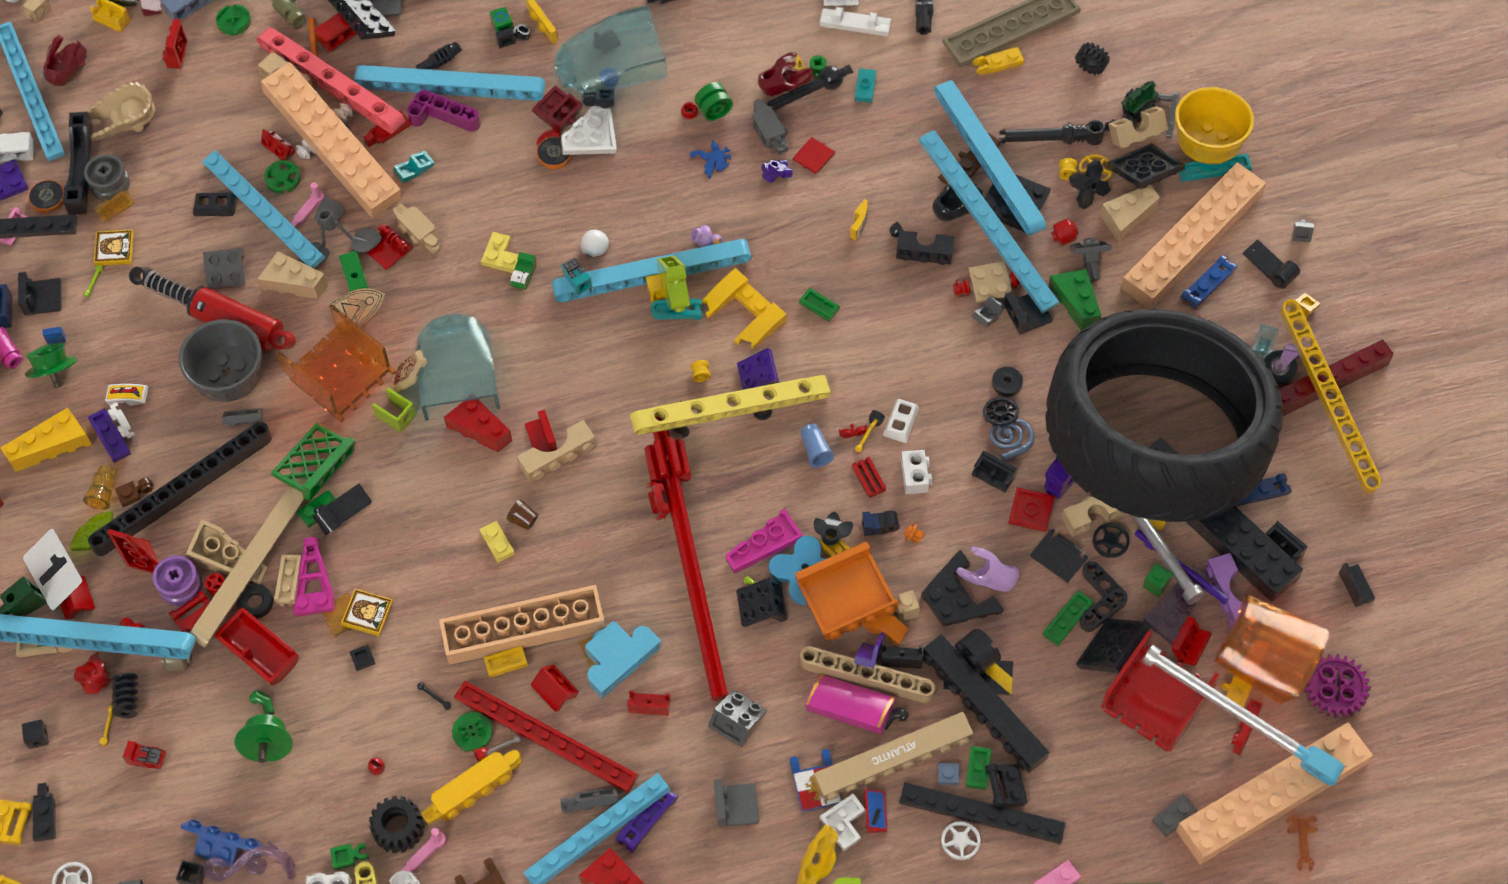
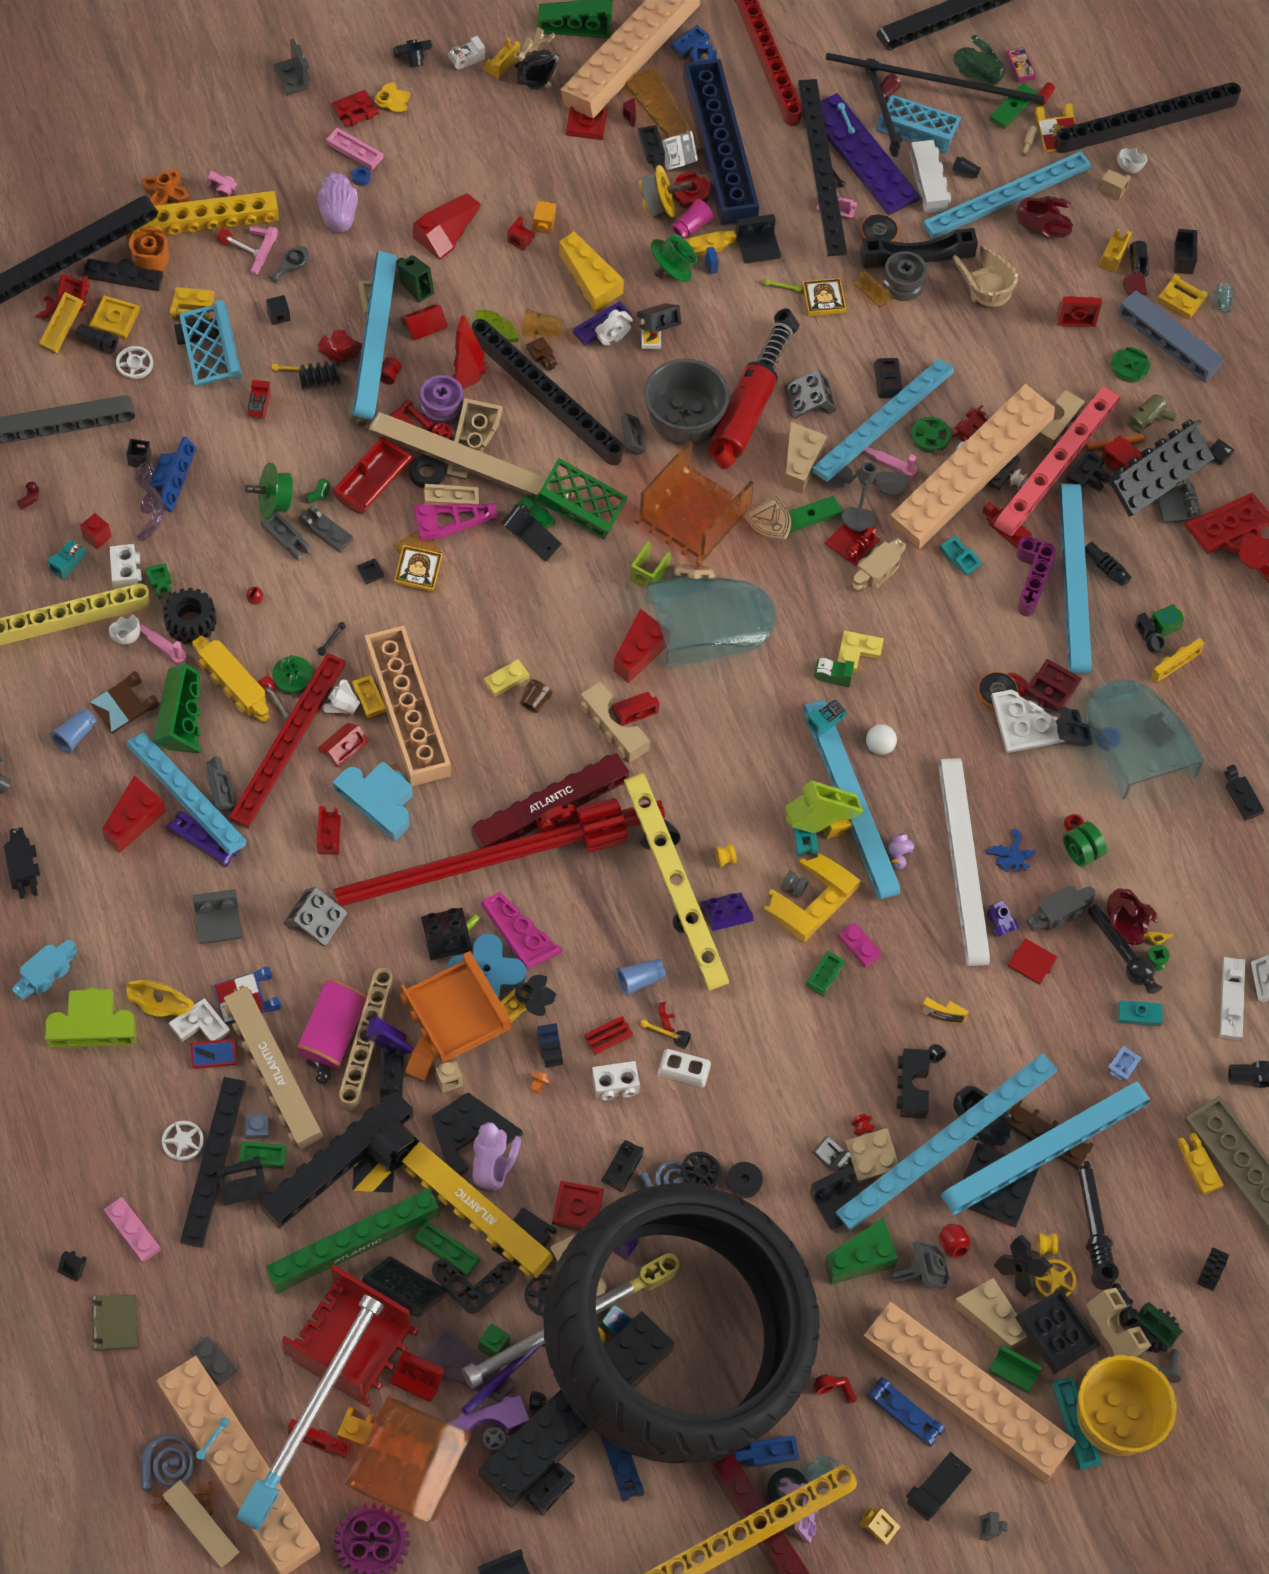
camera: 80 degrees right, 0 degrees up
(30, 335) = (718, 240): none -> yellow hinge
(52, 569) = (448, 296): white sticker -> none
(62, 782) = (226, 337): none -> medium azure fence
(115, 380) = (660, 317): none -> black hinge
(308, 696) = (326, 529): none -> dark grey hinge
(312, 733) = (285, 534): none -> dark grey hinge
(340, 60) = (1085, 469): none -> black hinge
(502, 836) = (179, 711): none -> green wedge
(508, 685) = (341, 699): none -> white rock
(637, 510) = (574, 789): none -> dark red brick
(719, 192) = (964, 862): none -> white beam
(733, 319) = (794, 884): none -> dark grey wheel
(792, 278) = (859, 944): none -> dark pink plate
(912, 99) = (1124, 1063): none -> light blue bracket
(1039, 584) = (478, 1210): none -> yellow brick
(1065, 692) = (352, 1241): none -> green brick
(1173, 203) = (1015, 1369): none -> green panel
(1207, 551) = (535, 1400): none -> black hinge
(1242, 581) = (491, 1437): none -> dark grey wheel
(1268, 874) = (173, 1461): none -> sand blue piece
(1274, 816) = (201, 1454): none -> medium azure hinge
(1327, 825) = (201, 1524): none -> tan tile

